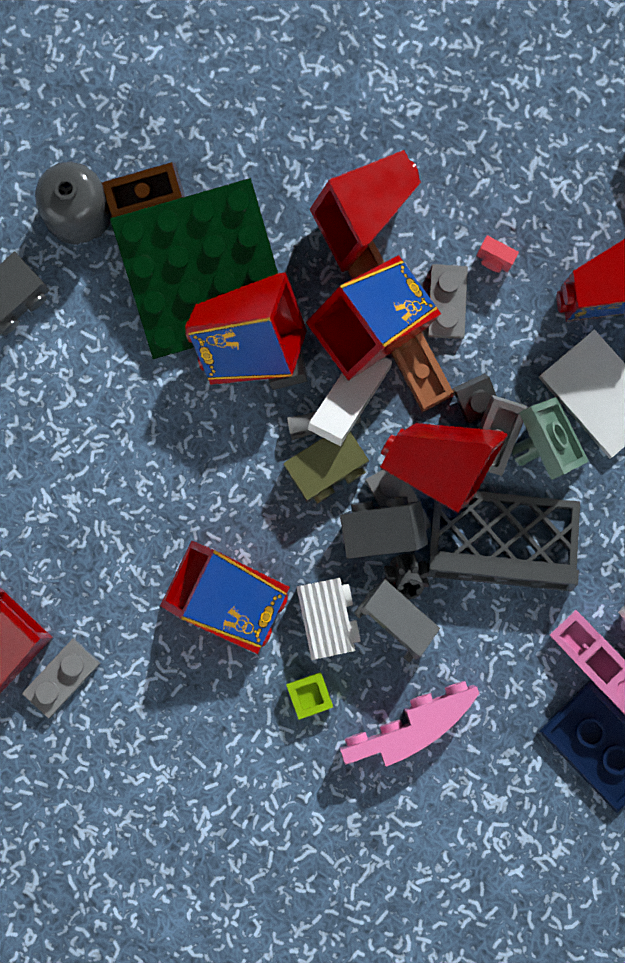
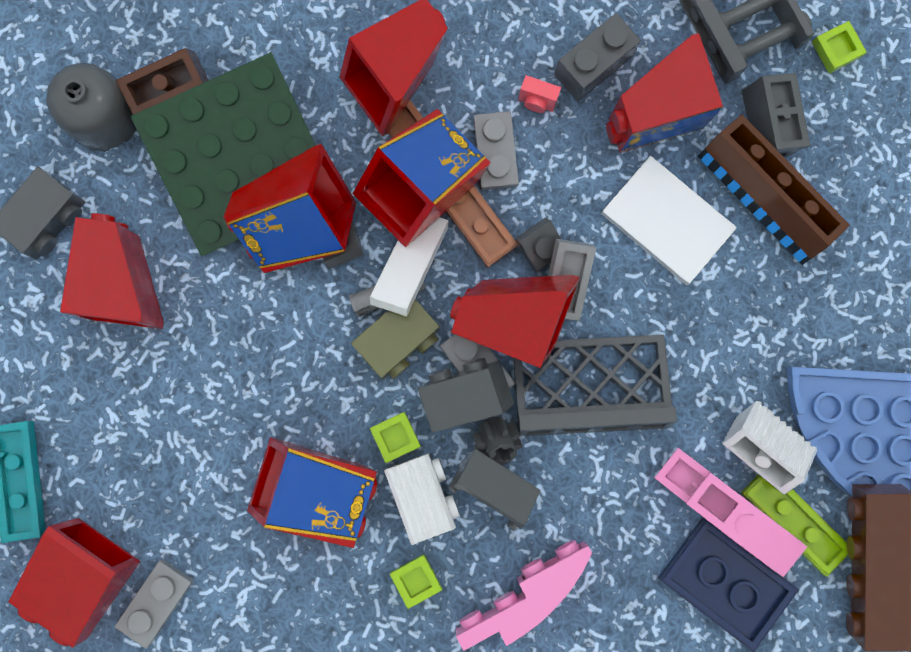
camera: 10 degrees left, 0 degrees up
(68, 366) = (109, 275): none -> red slope
(310, 558) = (395, 437): none -> lime plate
(550, 439) = (624, 275): sand green tile -> none
(558, 227) = (597, 57): none -> dark grey brick

